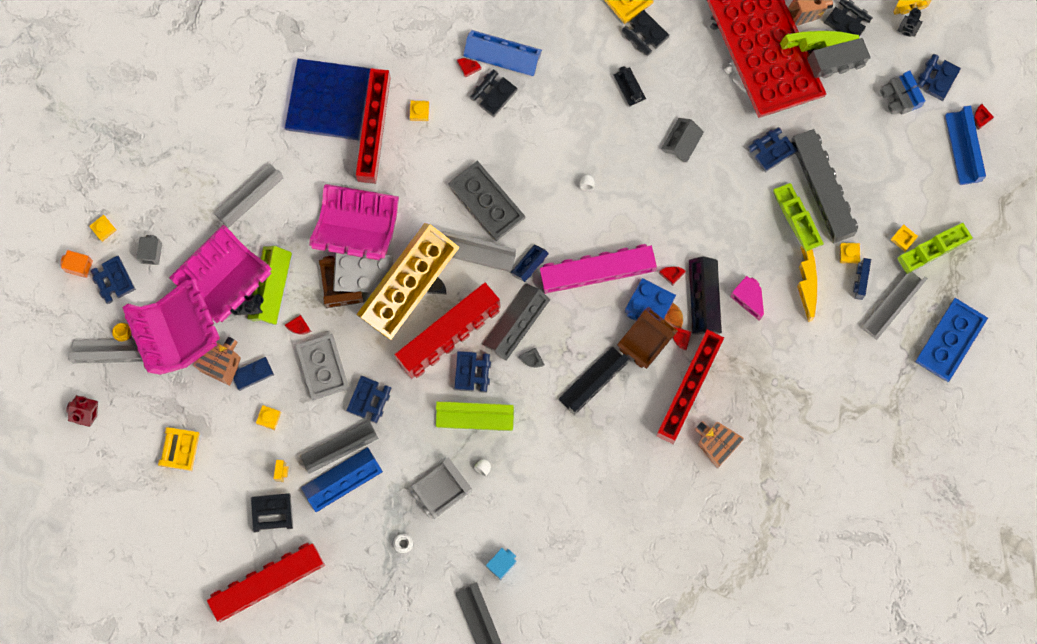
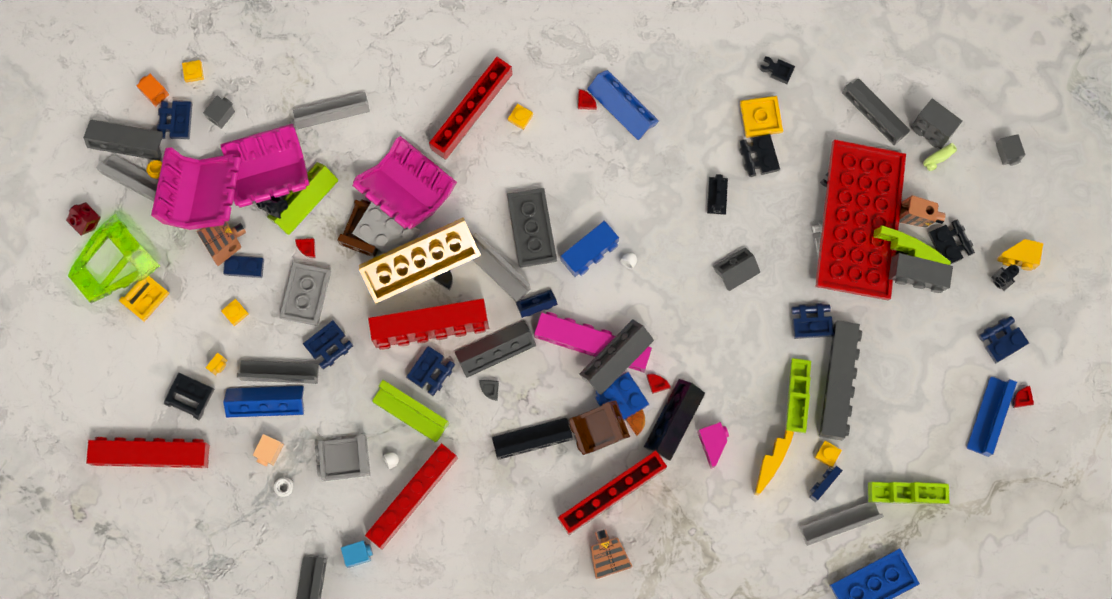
camera: 30 degrees right, 0 degrees up
(77, 322) = (123, 139): none -> dark grey panel
(139, 410) = (131, 249): none -> clear neon green windscreen
(327, 99) = (446, 63): clear blue plate -> none
(370, 519) = (267, 450): none -> light nougat brick
(497, 97) = (595, 141): black plate -> none
(520, 487) = (411, 496): none -> red brick
(548, 191) = (590, 249): none -> blue brick
(627, 268) = (617, 356): none -> dark grey panel
(682, 338) = (632, 445): red tile -> none
(904, 92) = (963, 337): dark grey hips -> none
(904, 238) = (885, 468): yellow plate -> none

